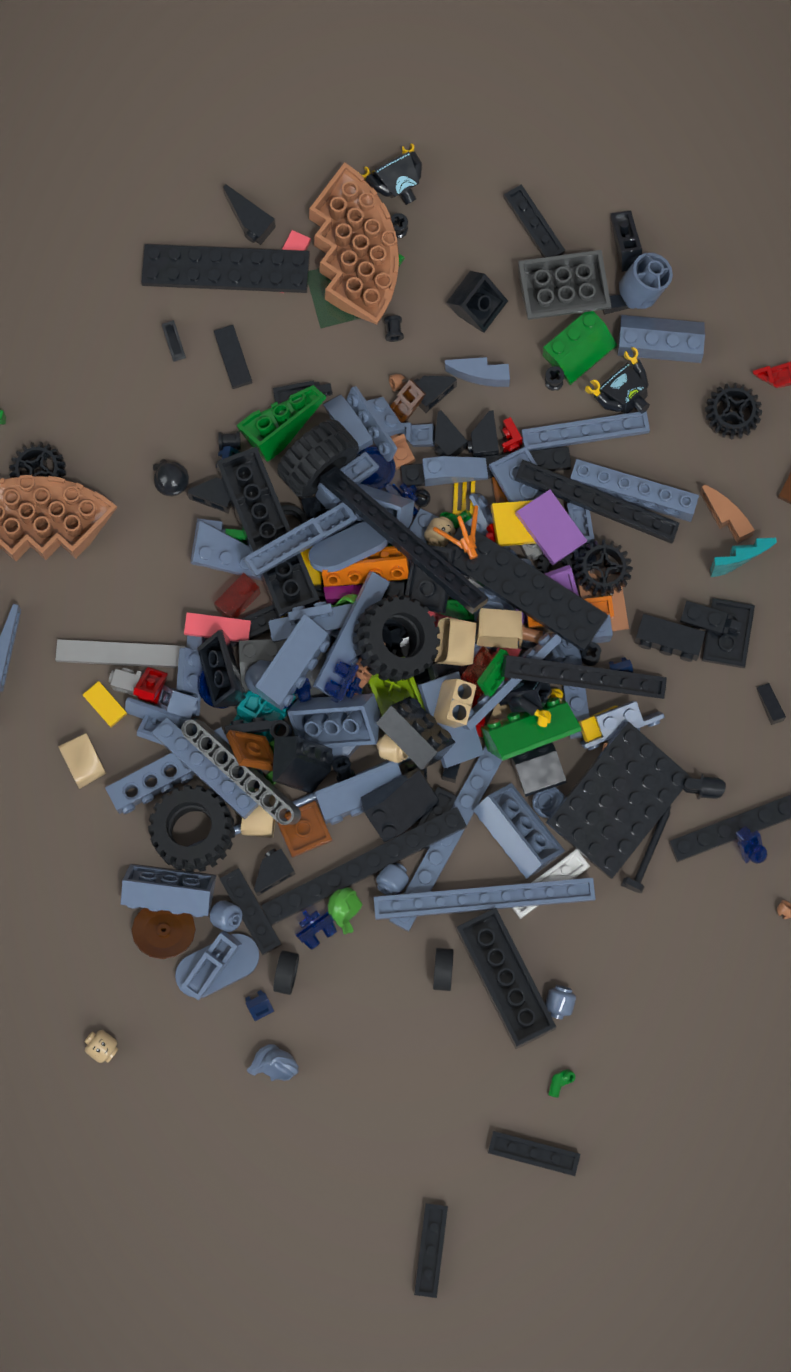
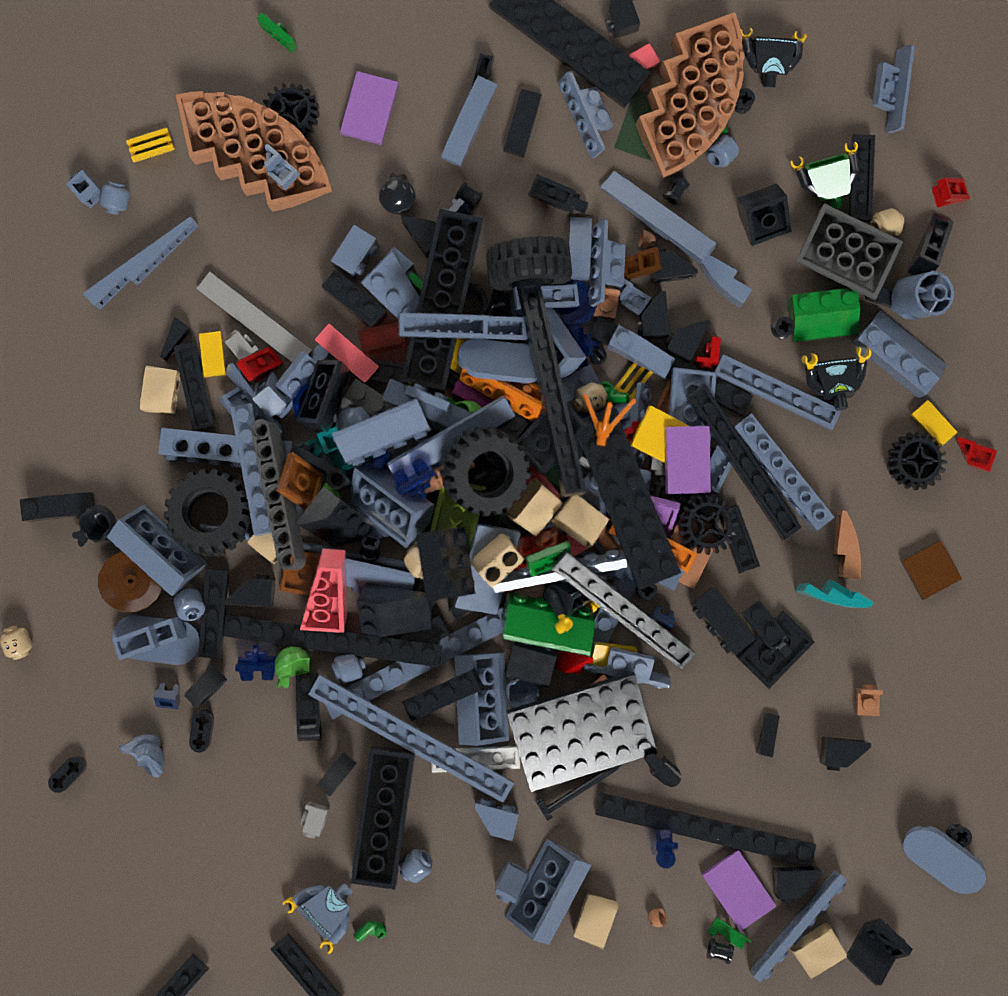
camera: 30 degrees right, 10 degrees up
(59, 912) = (55, 506): none -> black slope
(63, 517) = (279, 168): none -> sand blue slope
(64, 708) = (175, 336): none -> black piece
(99, 426) = (369, 108): none -> medium lavender tile
(103, 904) = (94, 525): none -> black hat
(108, 739) = (194, 386): none -> black plate
(167, 545) = (355, 252): none -> sand blue brick
(189, 382) = (469, 121): none -> sand blue slope
(193, 582) = (354, 300): none -> black brick
(212, 1126) = (64, 770): none -> black beam
(279, 315) = (587, 113): none -> sand blue bracket
(279, 424) = (517, 210): green wedge -> none
(302, 1017) = (196, 730): none -> black beam
(336, 829) = (328, 595): none -> coral wedge
(382, 935) = (307, 709): none -> black plate
(395, 357) = (659, 217): none -> sand blue slope
(410, 274) = (723, 151): none -> sand blue head
(450, 1022) = (314, 819): none -> light grey brick
(485, 845) = (443, 694): none -> black plate
(509, 238) = (830, 177): none -> torso
(510, 140) = (893, 87): none -> sand blue bracket
(511, 1089) = (324, 911): none -> sand blue torso
(571, 749) = (571, 662): none -> red slope
(579, 242) = (888, 221): none -> tan head
(600, 919) = (497, 819): none -> sand blue slope
(611, 189) = (950, 191): none -> red slope
(643, 570) = (741, 547): none -> black tile
(646, 960) = (510, 882): none -> sand blue slope
(682, 948) = (548, 892): none -> sand blue slope
(725, 373) = (933, 423): none -> yellow tile
(737, 944) = (595, 920): none -> tan piece

